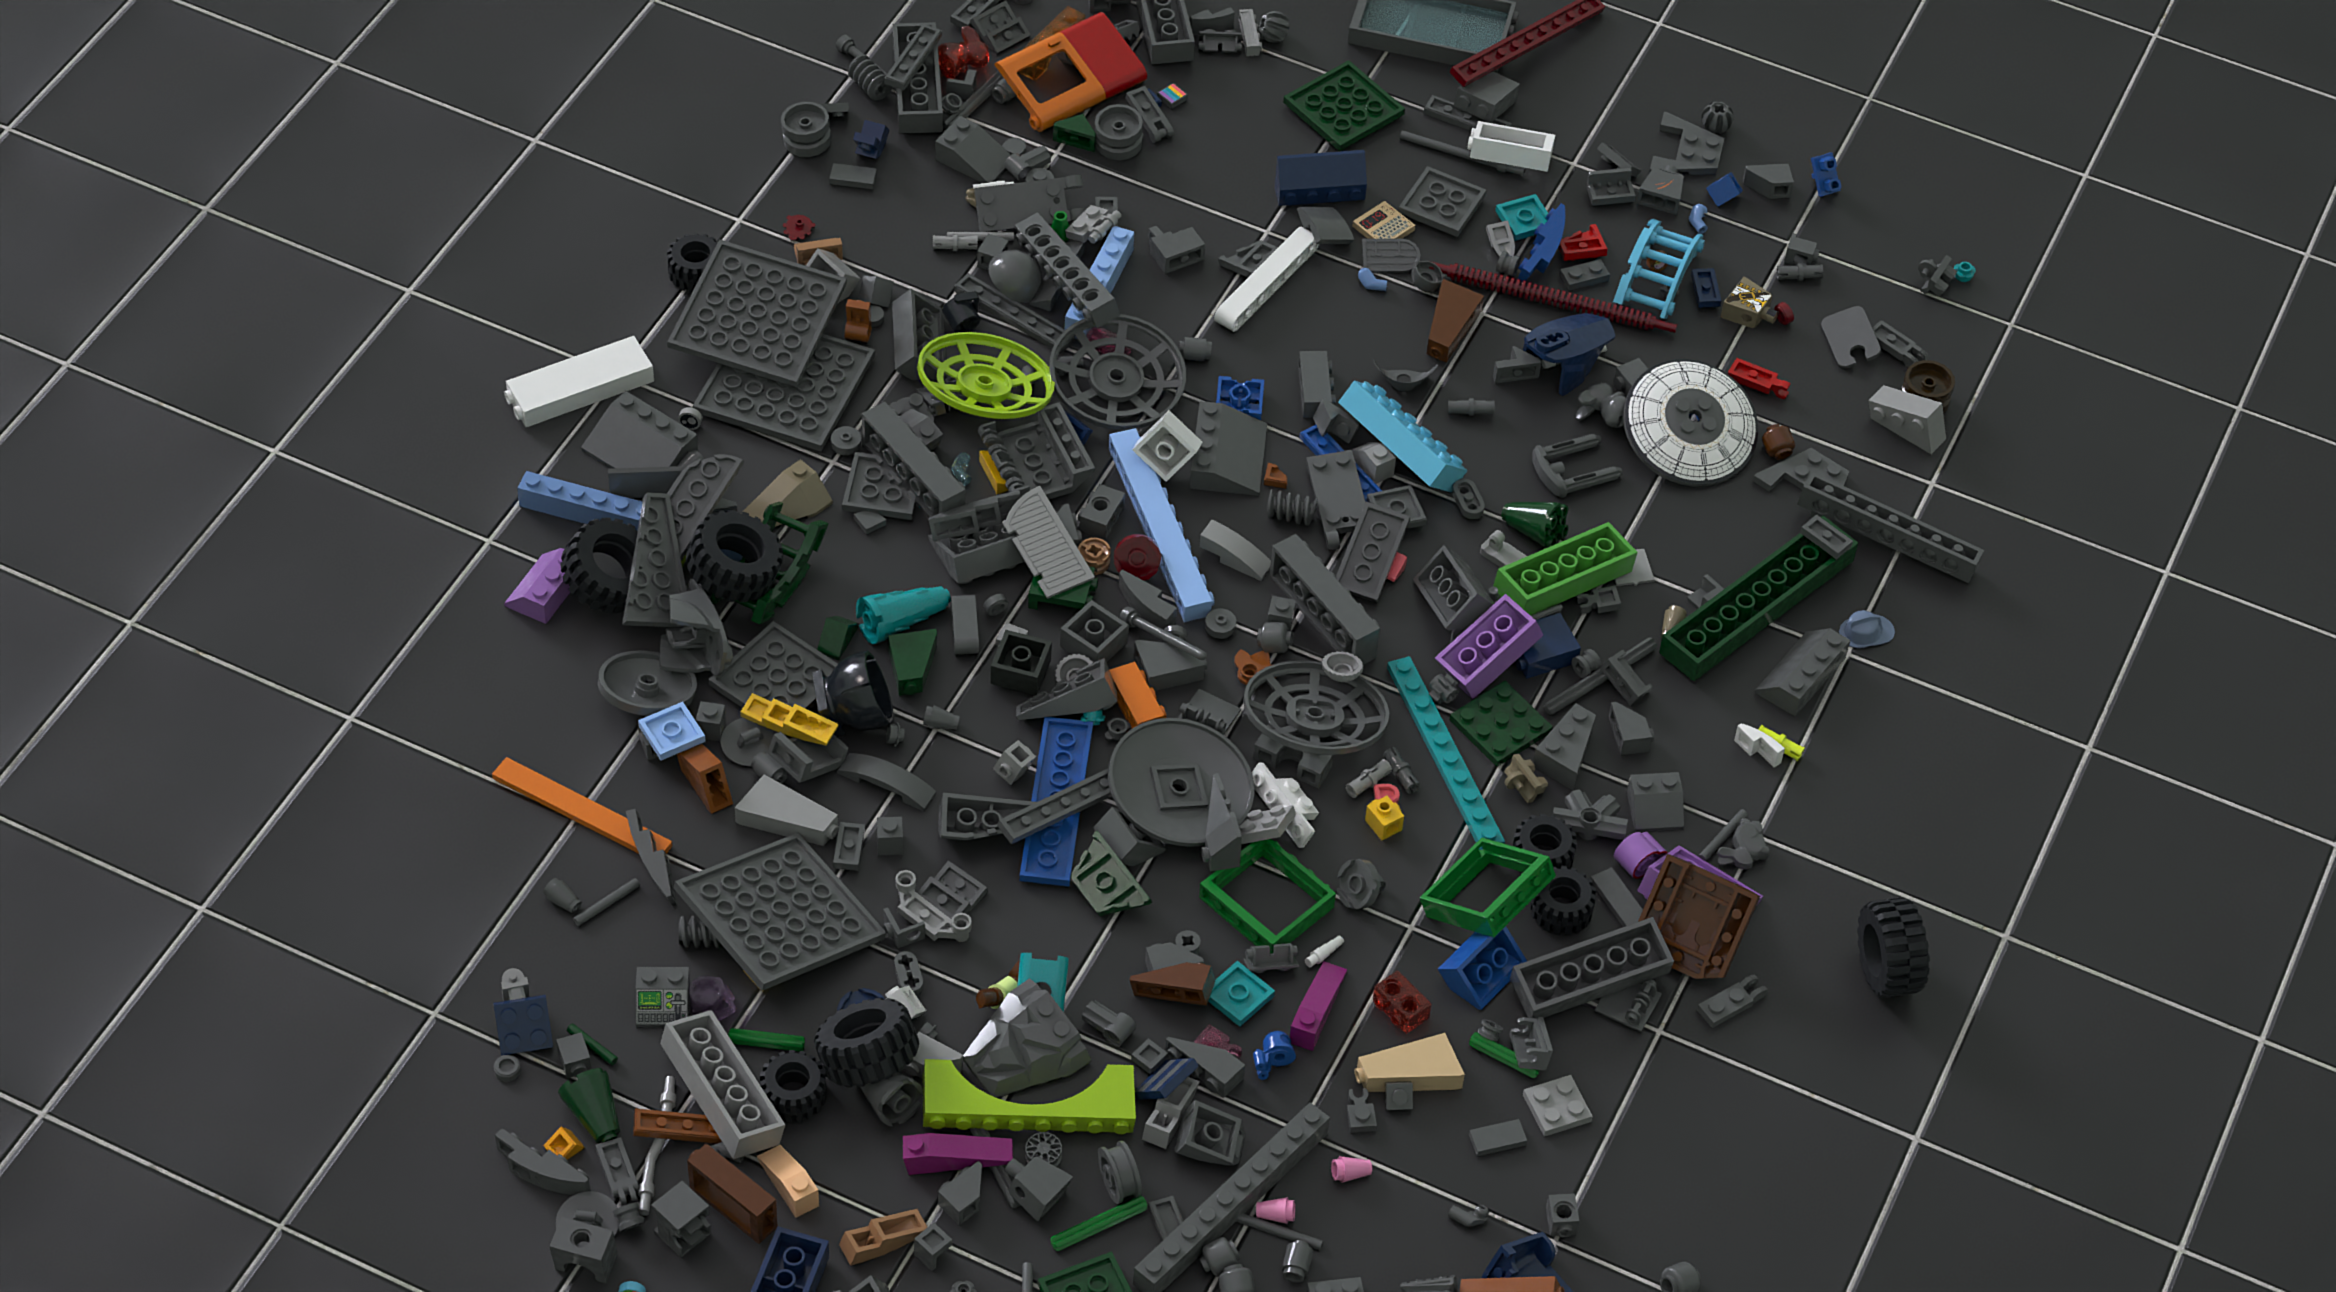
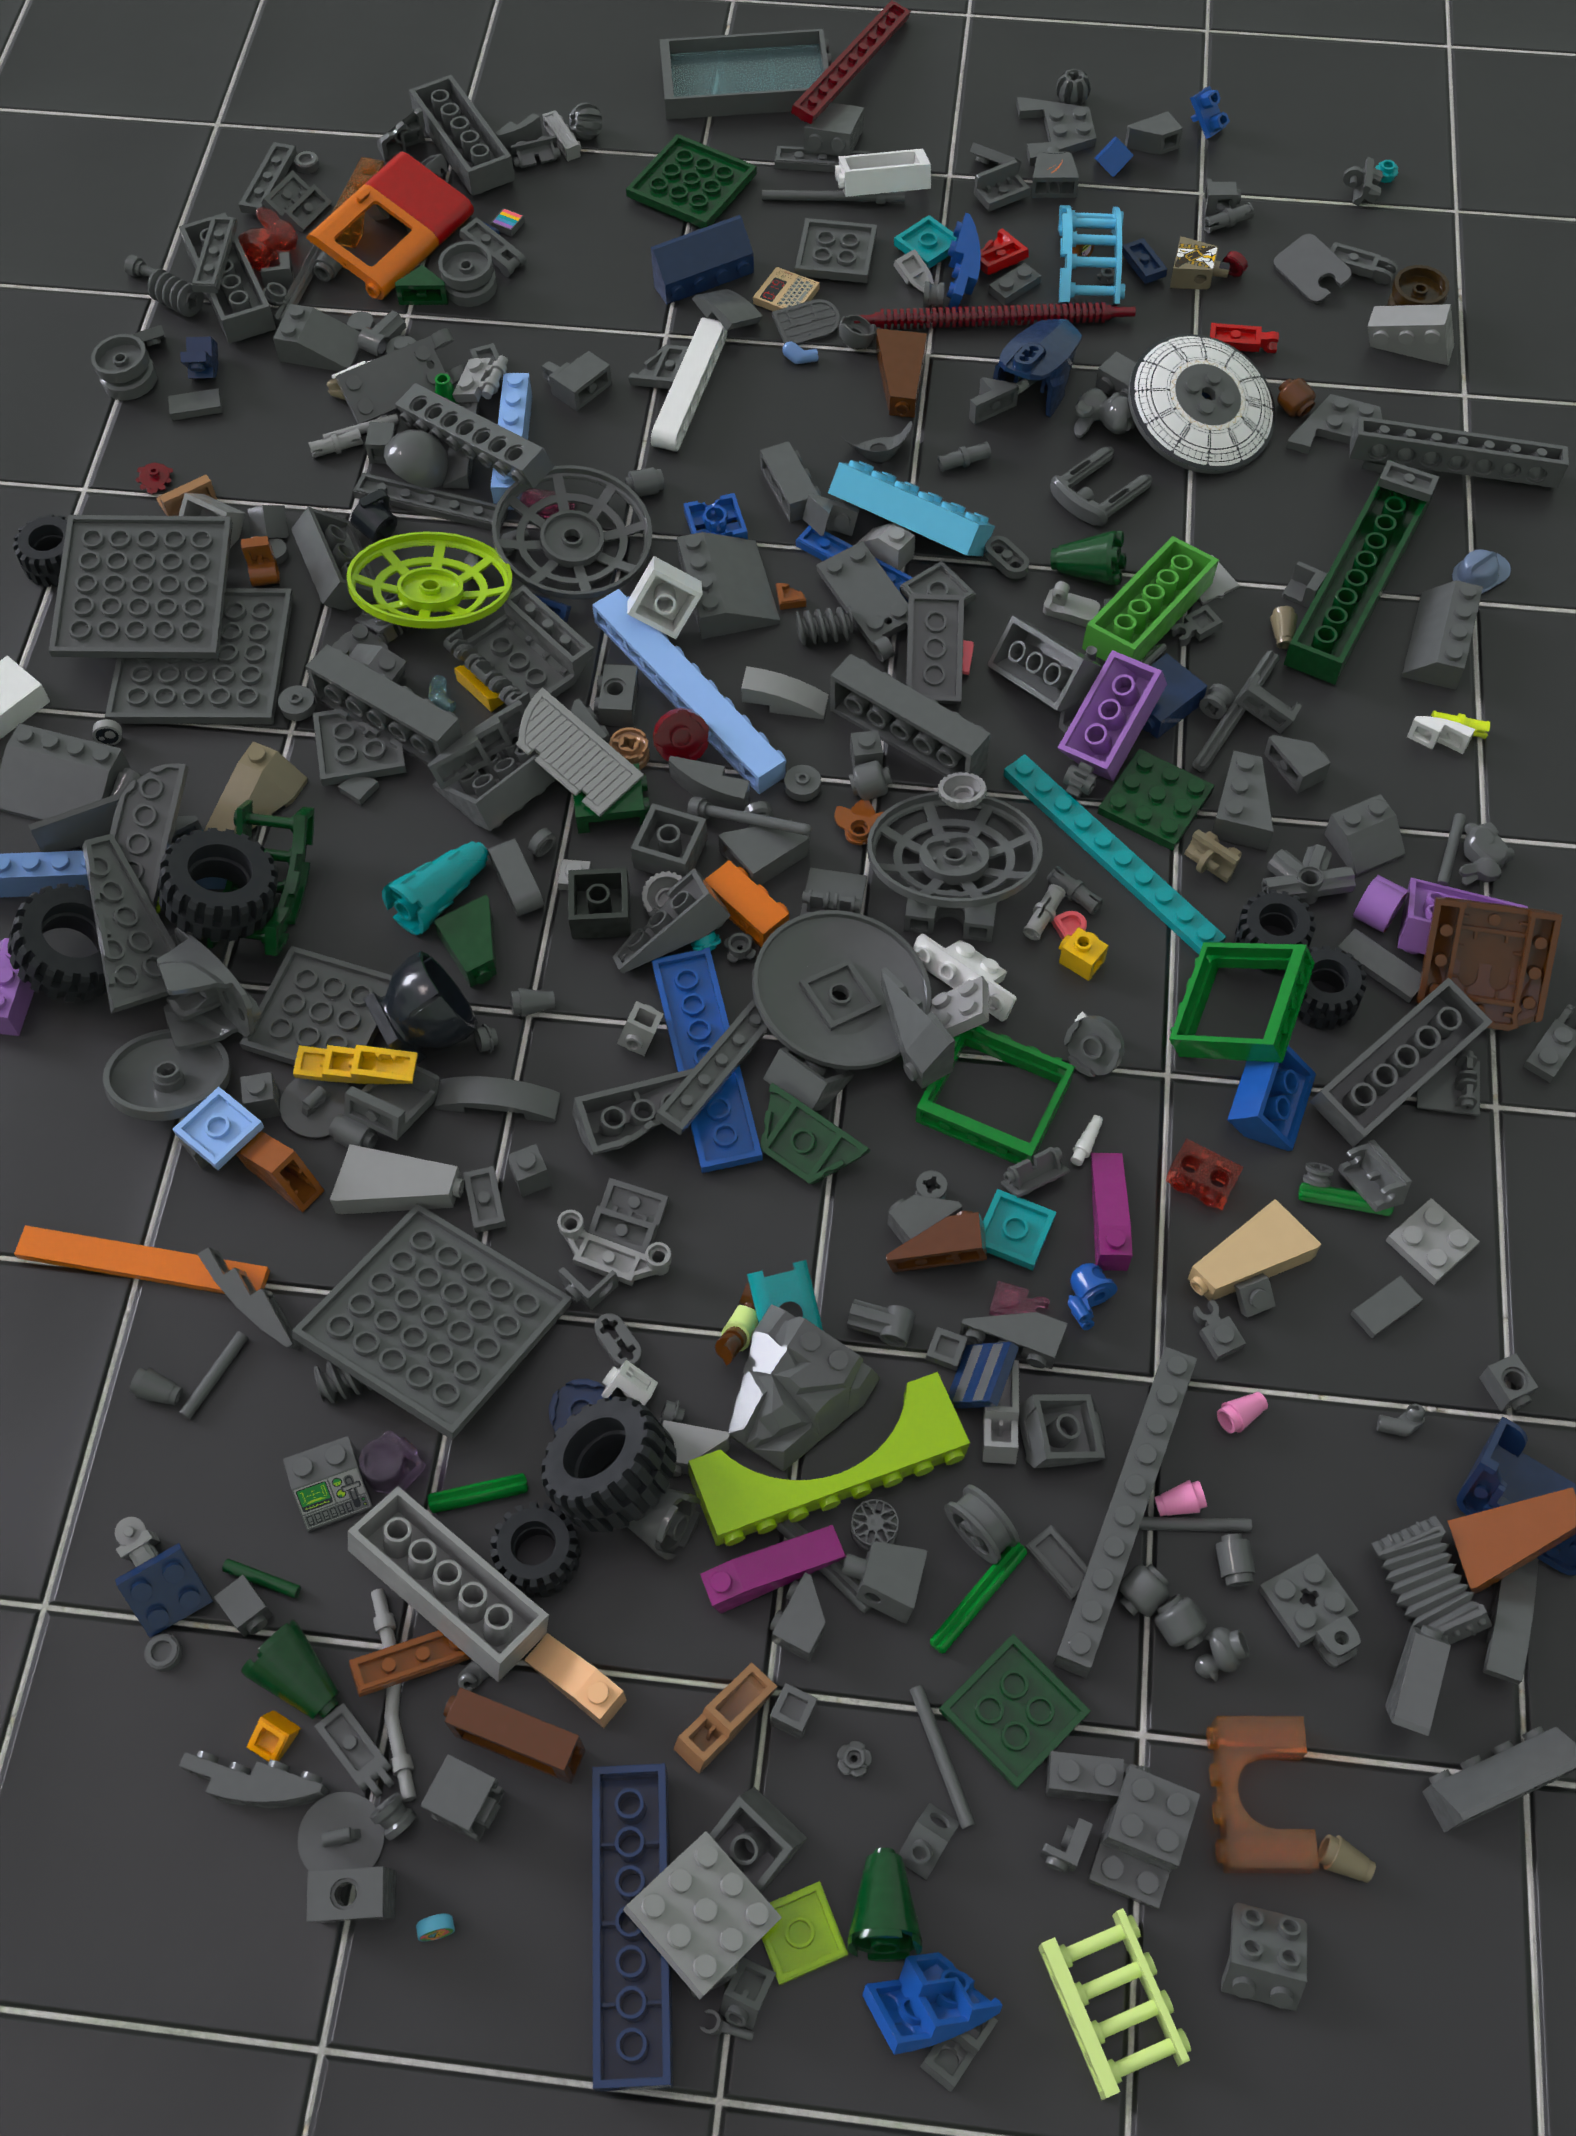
camera: 15 degrees left, 10 degrees up
(836, 636) = (372, 939): dark green slope -> none
(1696, 218) = (1099, 195): medium blue arm -> none

